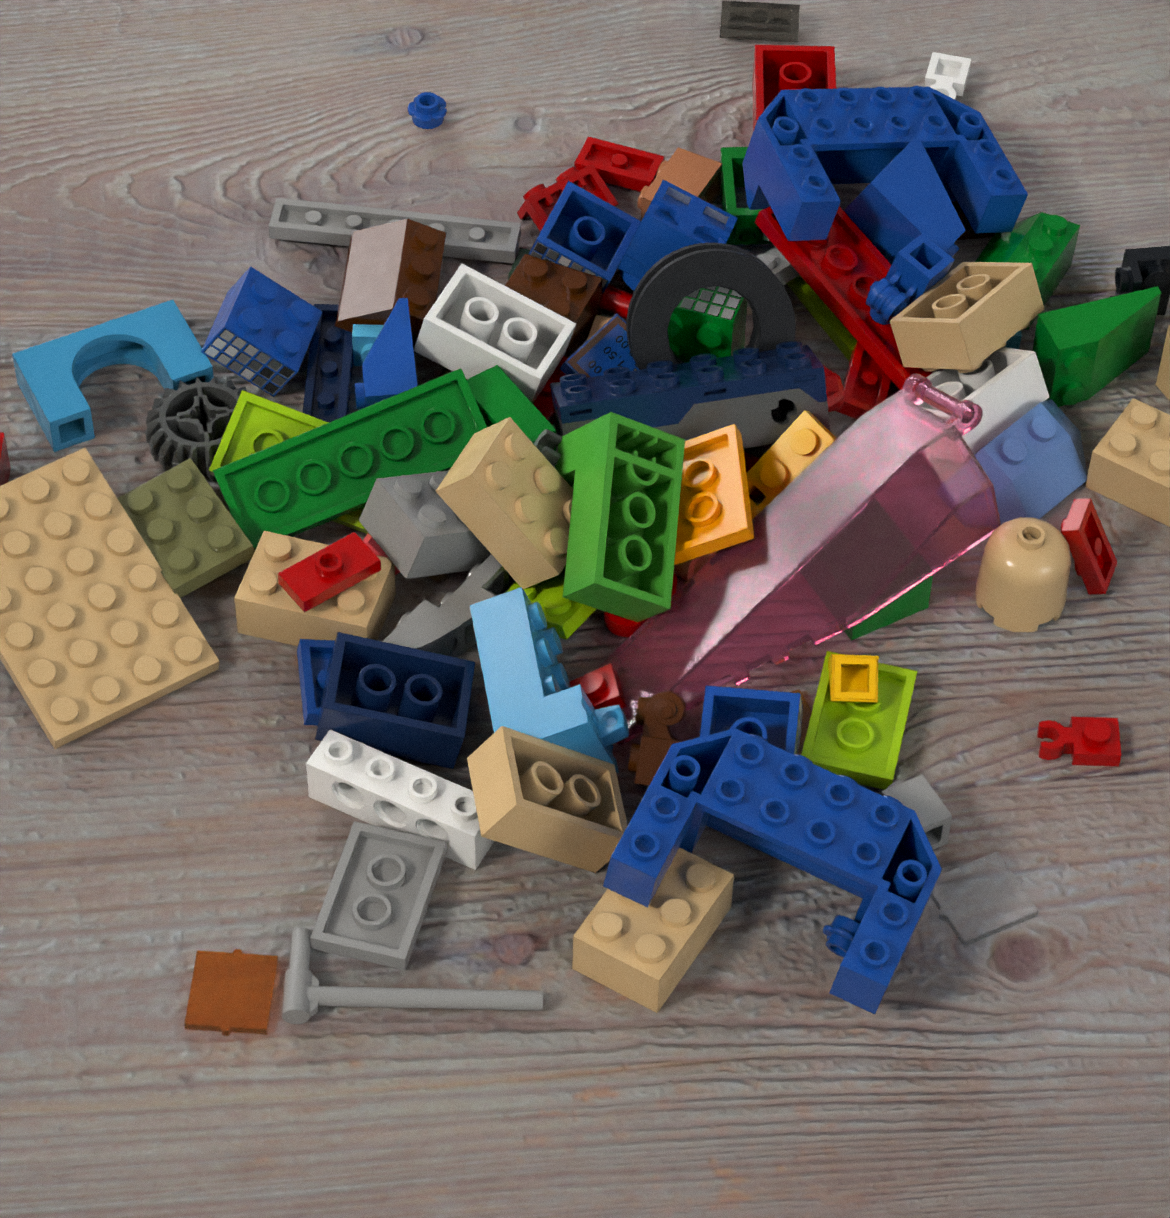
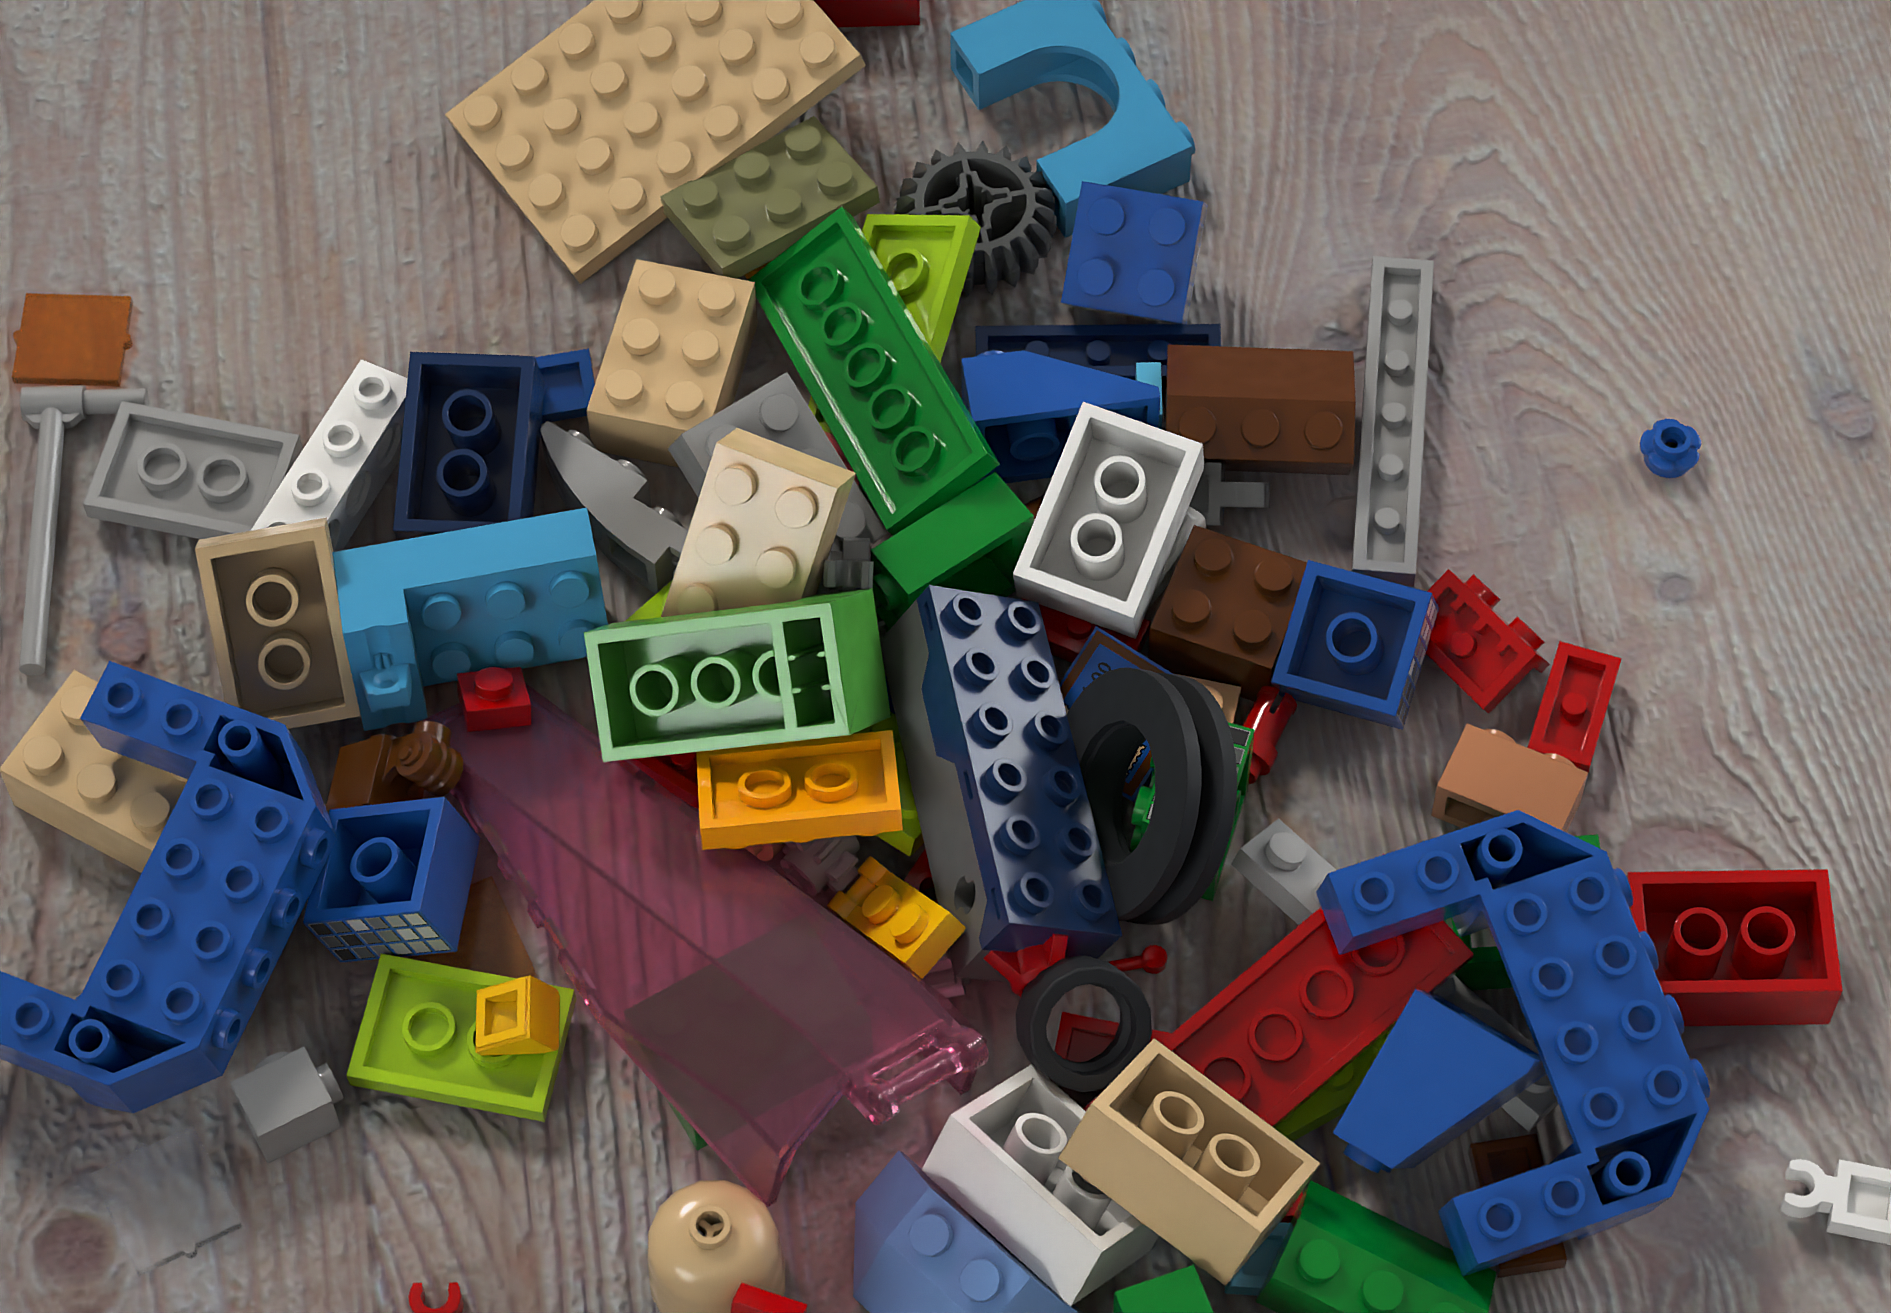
camera: 90 degrees right, 10 degrees up
(329, 571) = (659, 350): red plate -> none
(670, 223) = (1338, 759): blue piece -> none
(864, 369) = (1043, 994): none -> black tyre
(910, 275) = (1266, 1080): blue brick -> none

